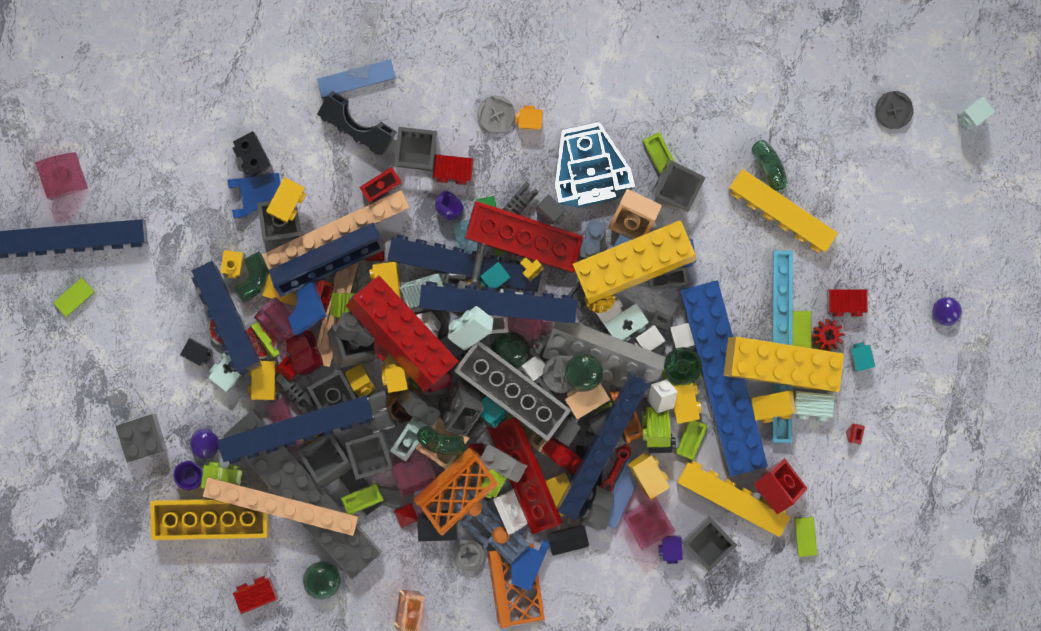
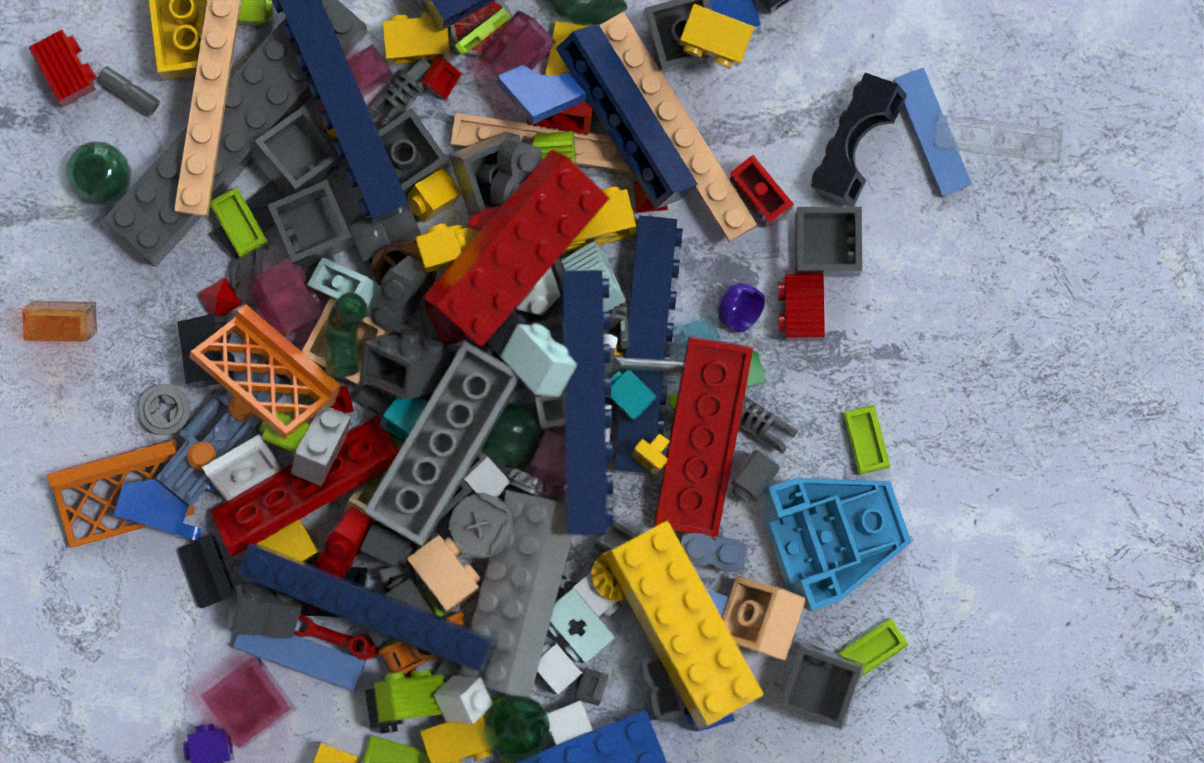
camera: 80 degrees right, 5 degrees down
(272, 559) = (124, 88): none -> dark grey piece
(304, 353) = (469, 99): dark red brick -> none
(496, 114) = (902, 368): light grey tile -> none
(529, 118) = (902, 423): light orange brick -> none
(536, 141) = (866, 439): none -> lime tile
(584, 372) = (487, 560): clear green cylinder -> none
(648, 475) = (327, 693): yellow brick -> none

